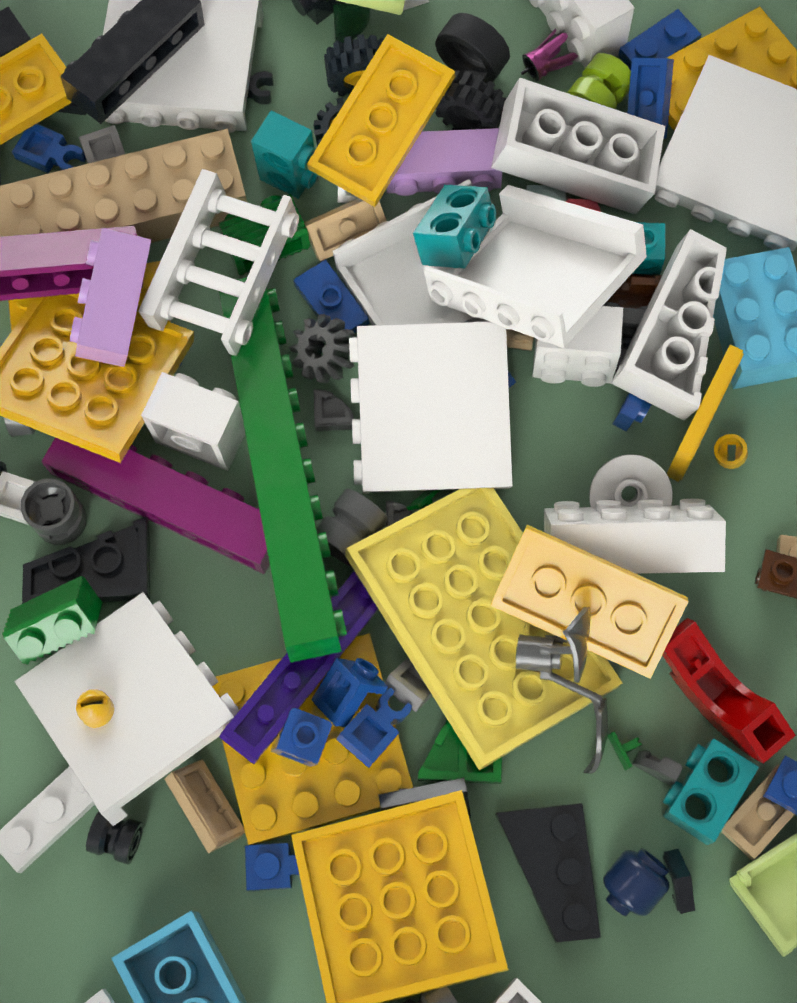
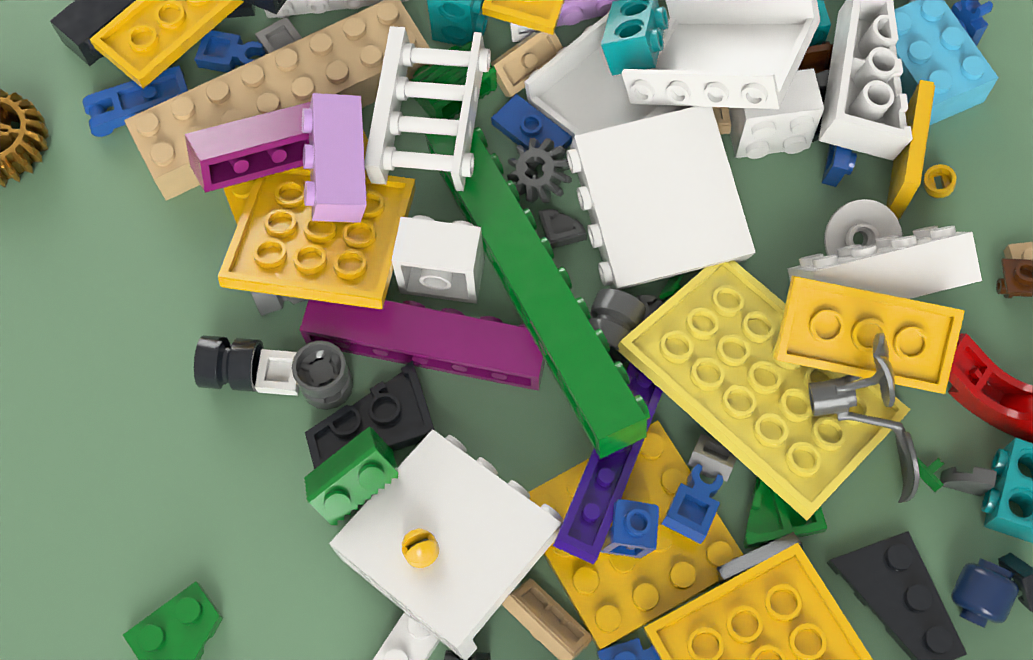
camera: 15 degrees left, 5 degrees down
(346, 688) = (658, 473): blue bracket -> none

